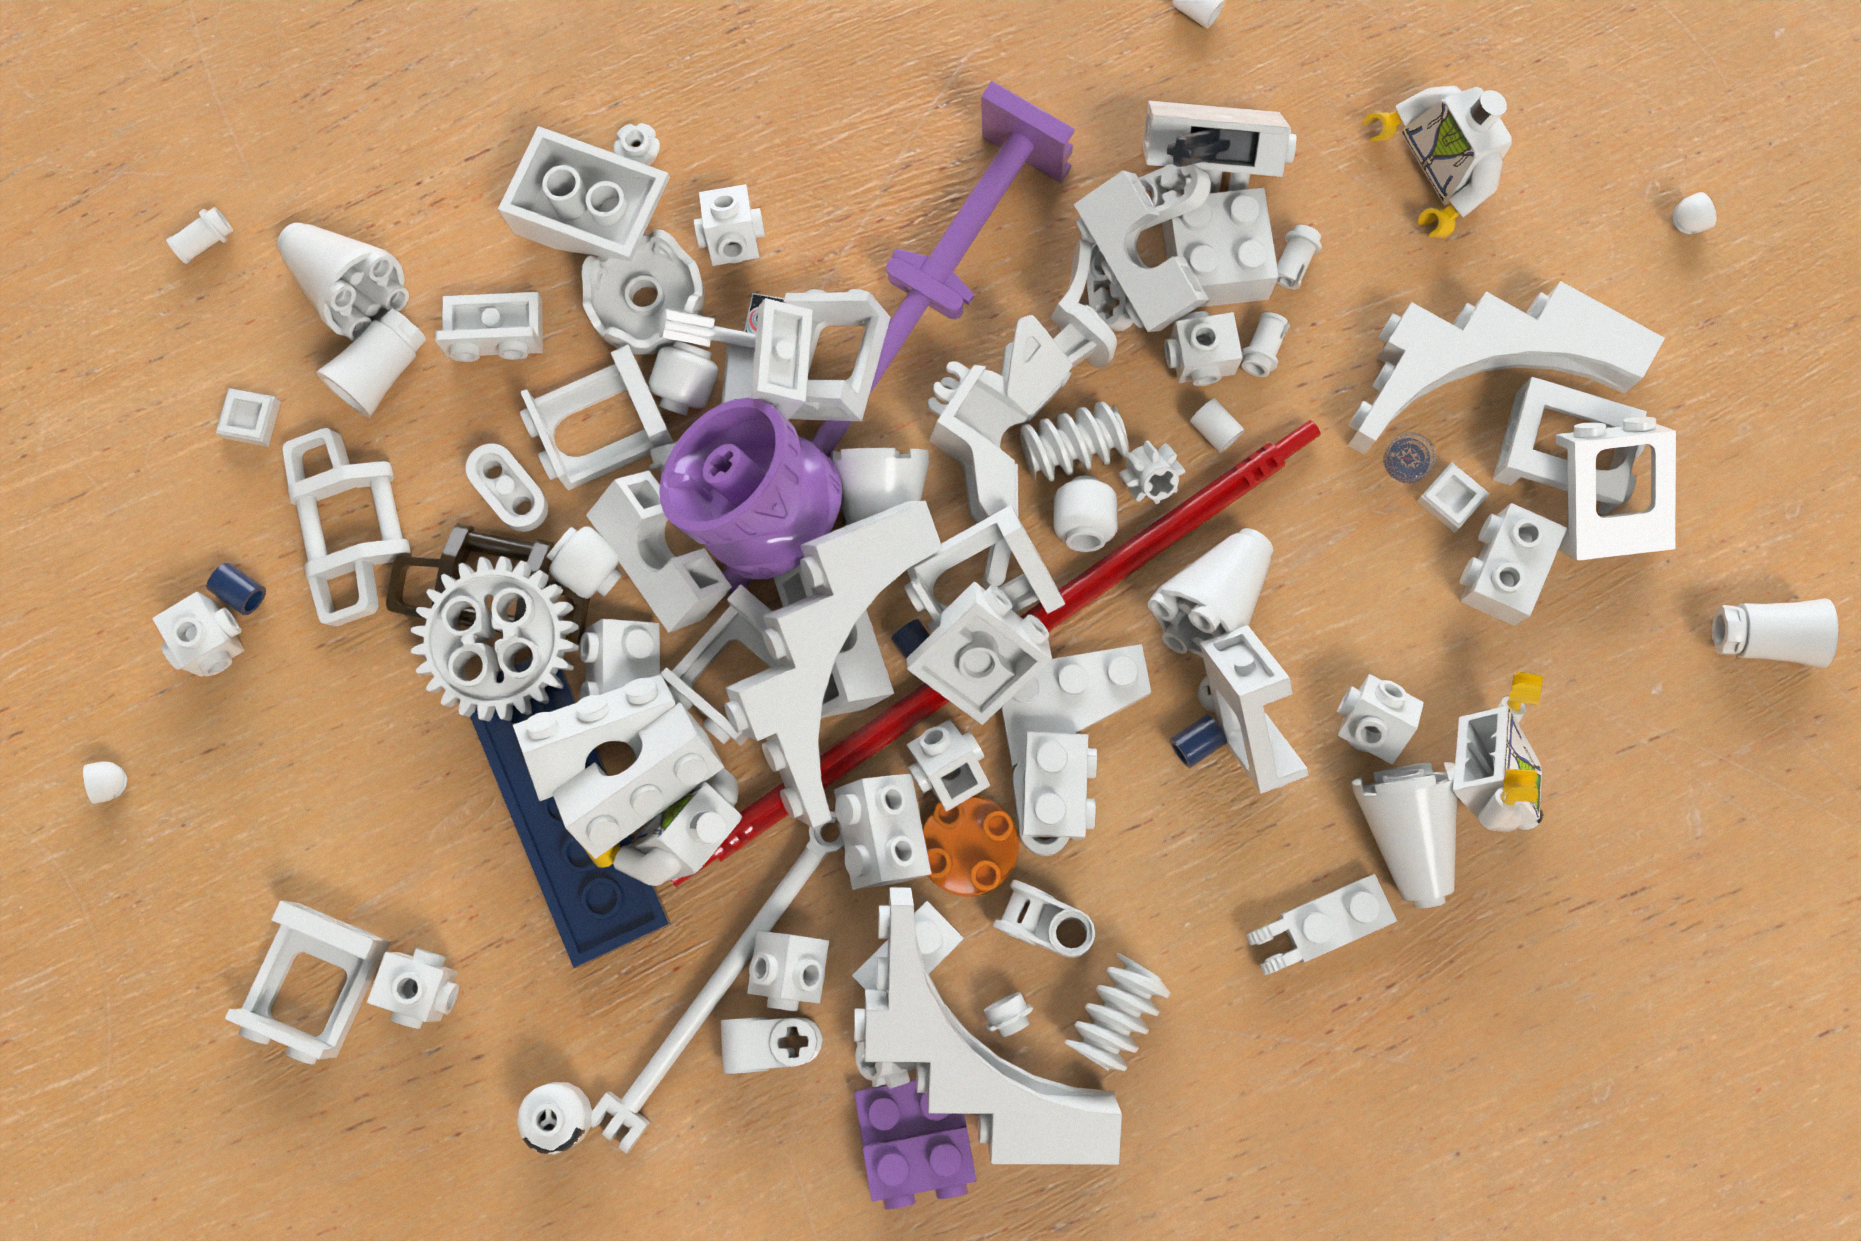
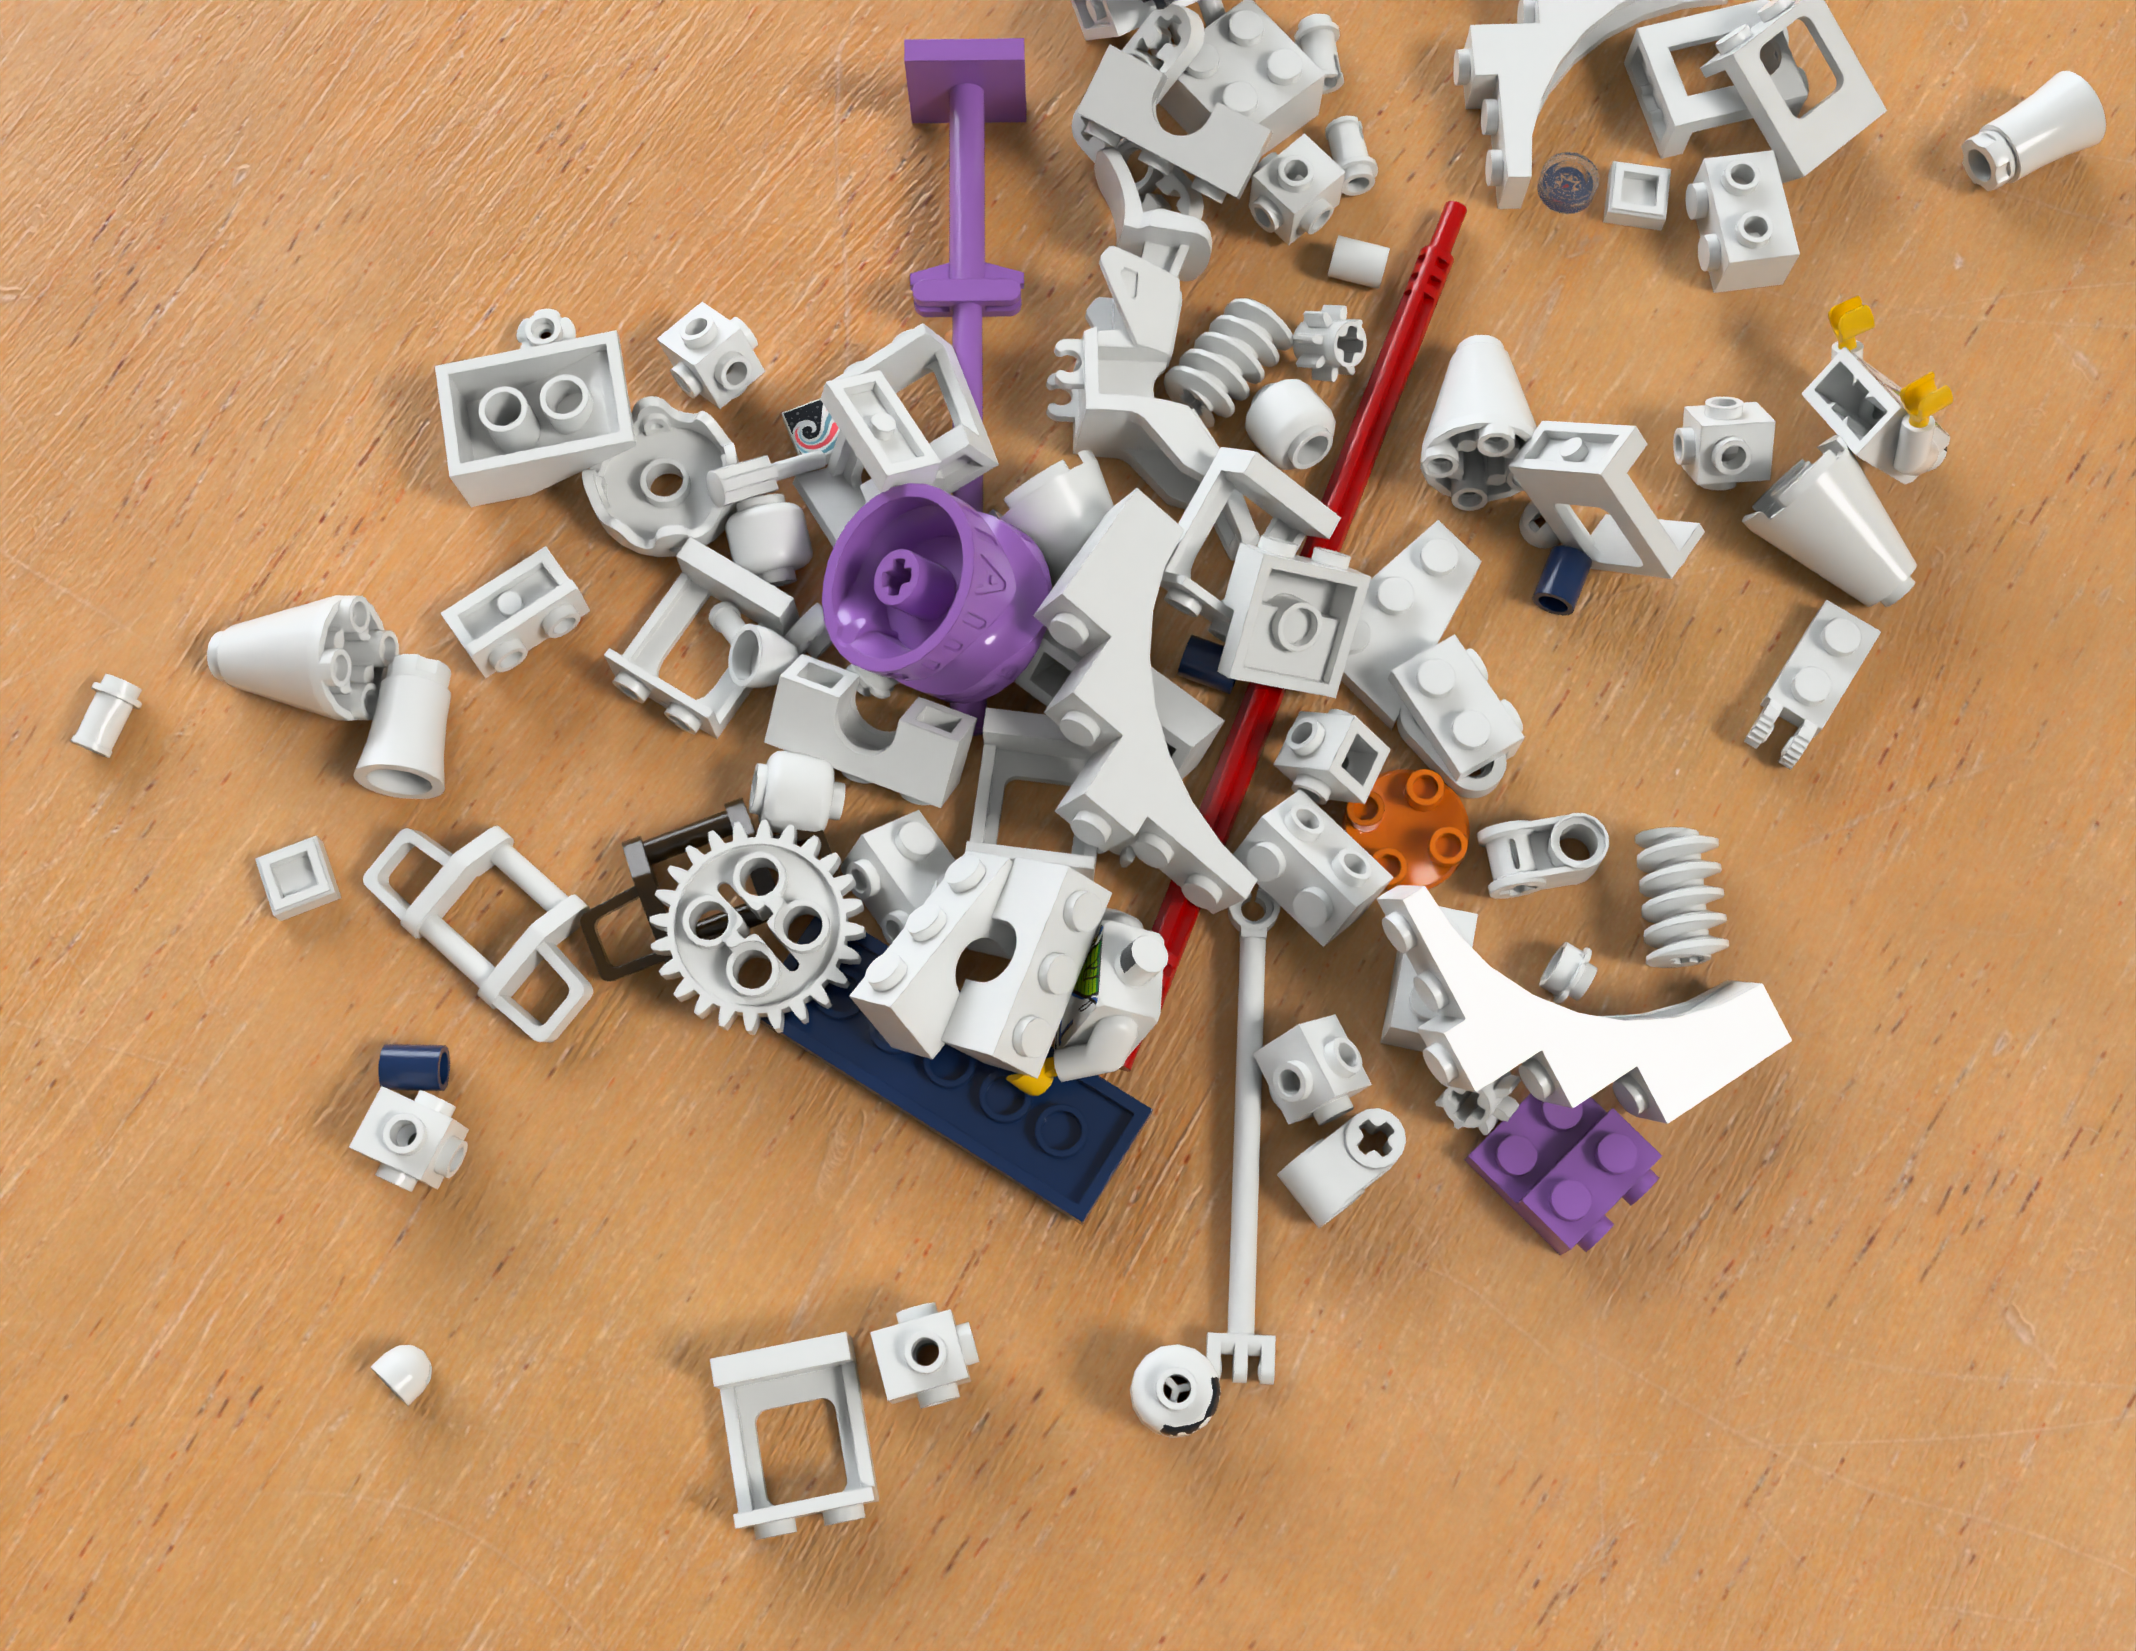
camera: 35 degrees left, 5 degrees down
(507, 490) = (654, 772): white plate -> none
(621, 452) = (755, 652): none -> white bar

